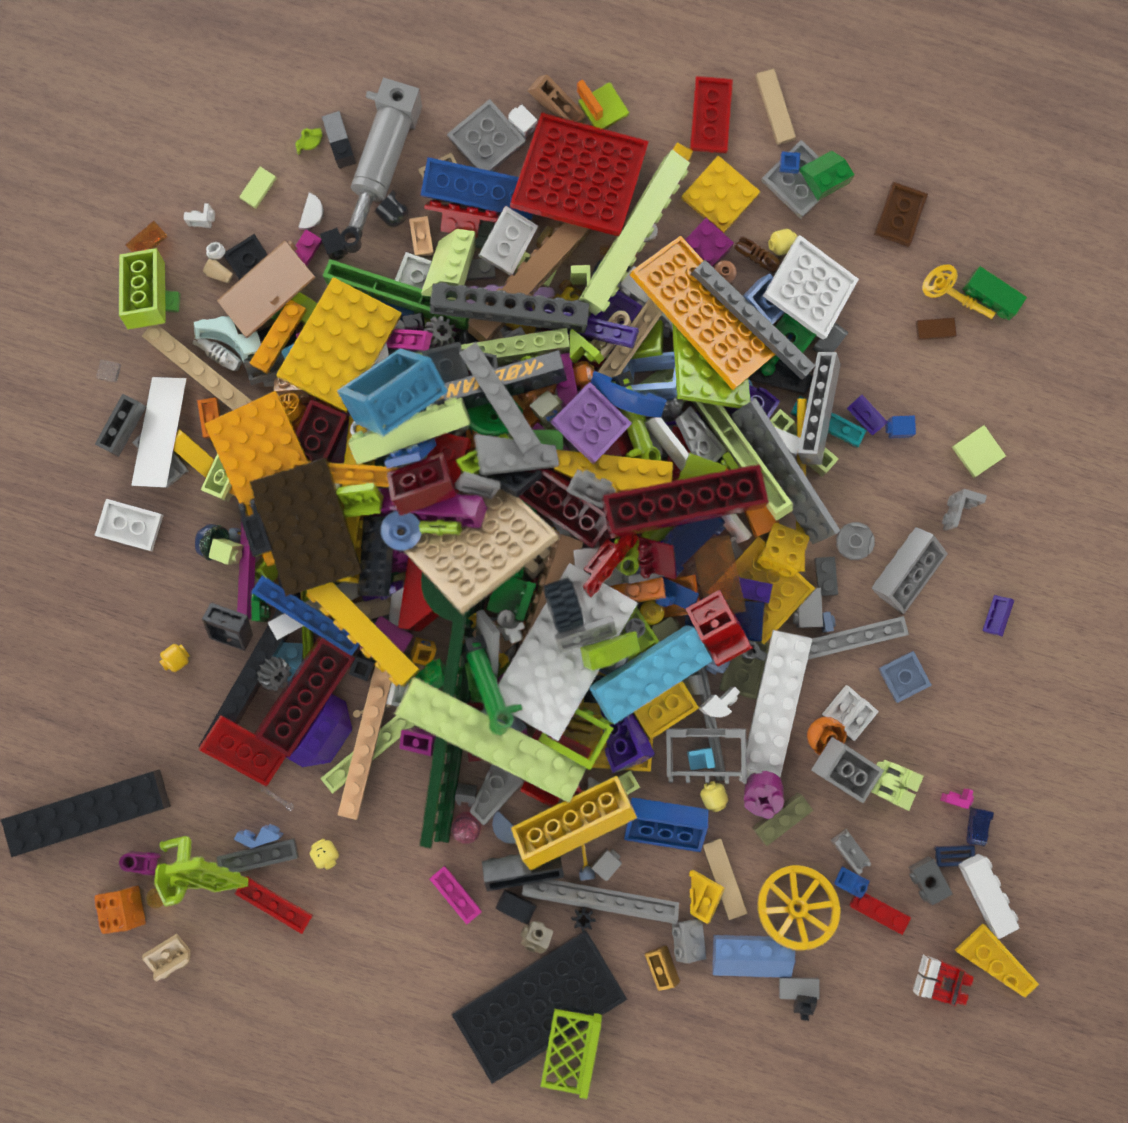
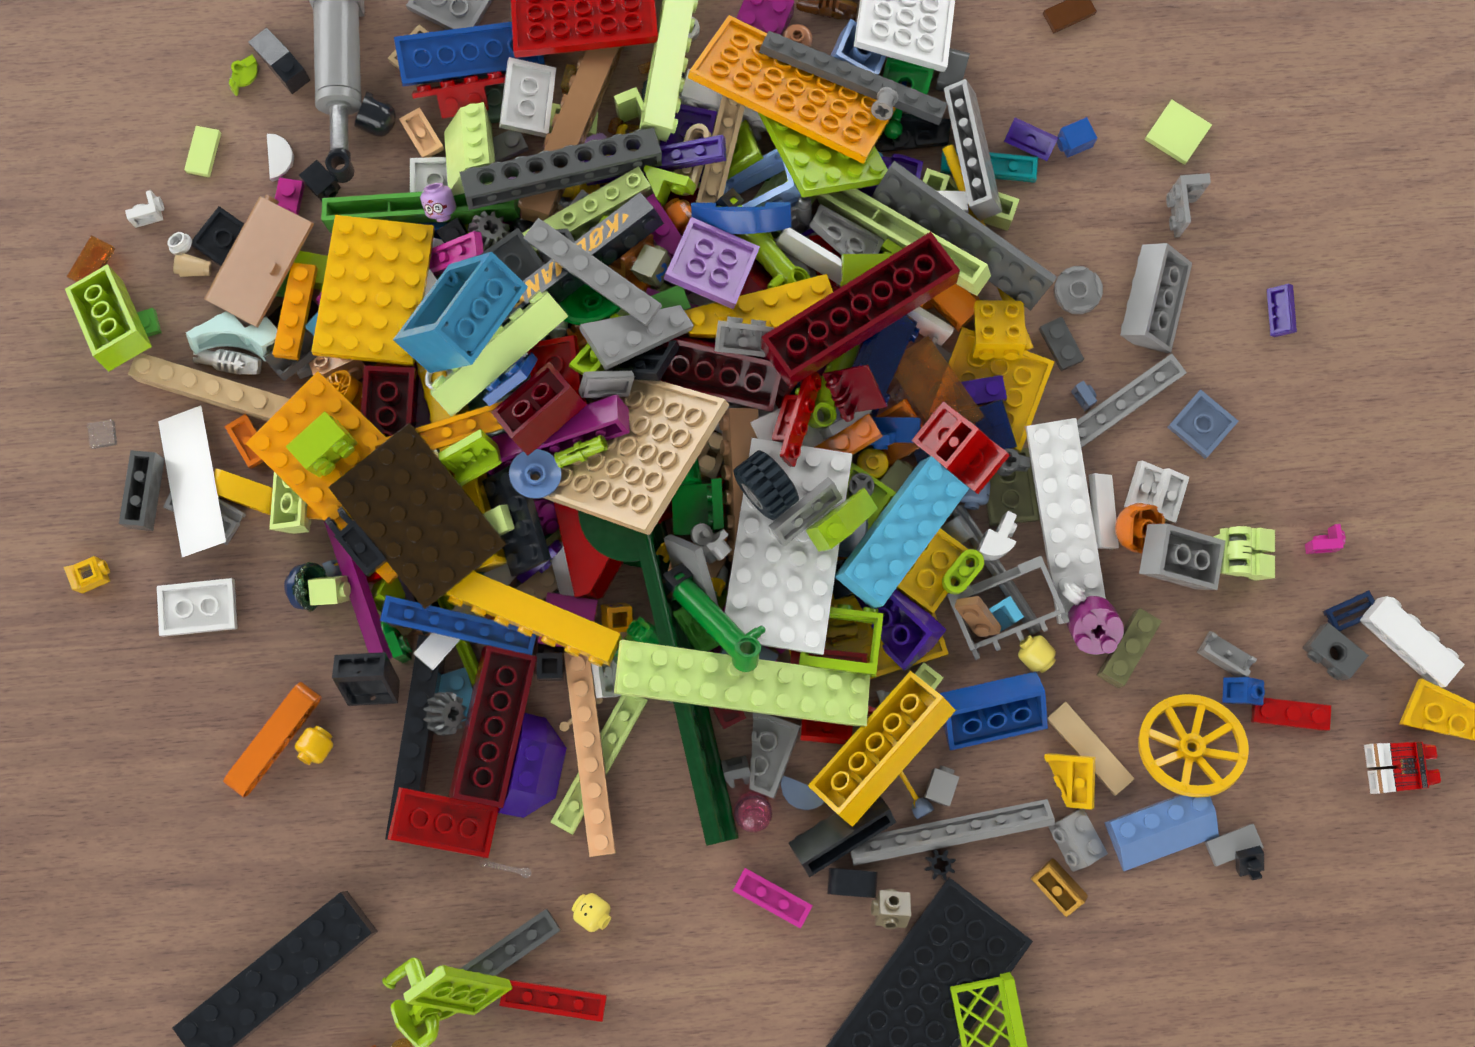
camera: 15 degrees left, 5 degrees down
(60, 470) = (88, 574): none -> yellow window
(144, 862) = (371, 1012): magenta piece -> none
(147, 641) = (272, 739): none -> orange beam
(256, 449) = (322, 445): none -> lime brick
(266, 835) = (510, 918): medium blue slope -> none
(364, 552) = (500, 519): none -> yellowish green tile
(410, 297) = (438, 202): none -> lavender head
(417, 741) = (653, 726): magenta brick -> none
(682, 754) = (978, 616): none -> medium nougat plate
(683, 718) = (962, 572): none -> lime plate
(758, 765) = (1074, 593): none -> white plate
(765, 352) = (883, 107): none -> light grey bush
(805, 711) = (1103, 510): none -> white tile
(810, 611) = (1060, 392): light grey slope -> none
(978, 826) = (1364, 564): clear blue leg -> none

